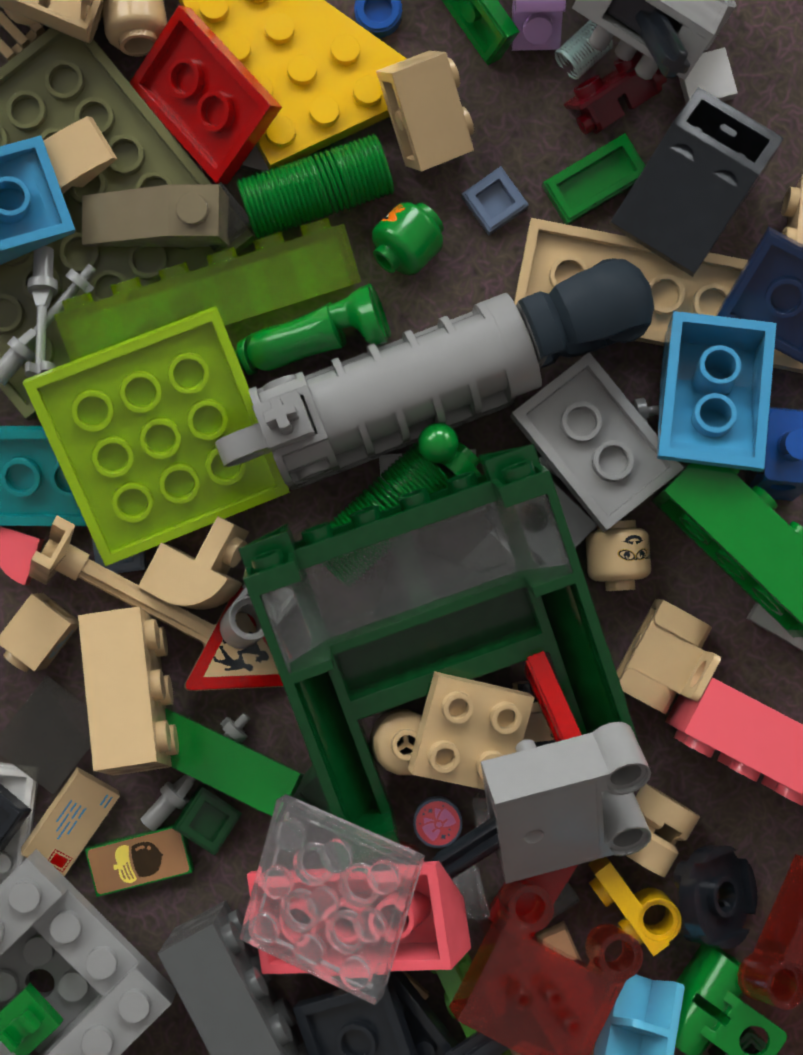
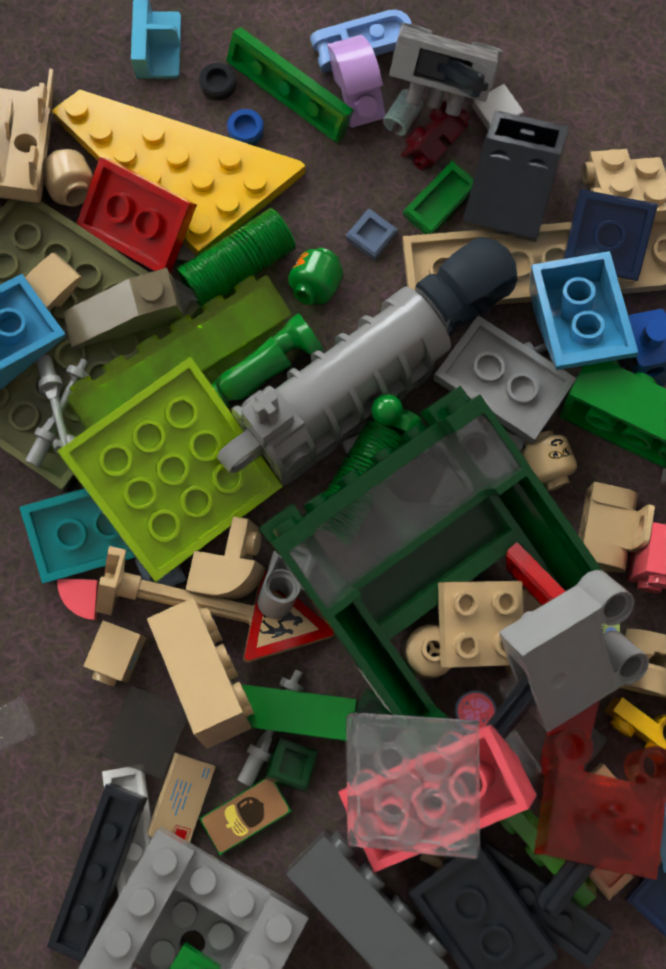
camera: 20 degrees left, 10 degrees down
(427, 109) = (303, 180): tan brick -> none

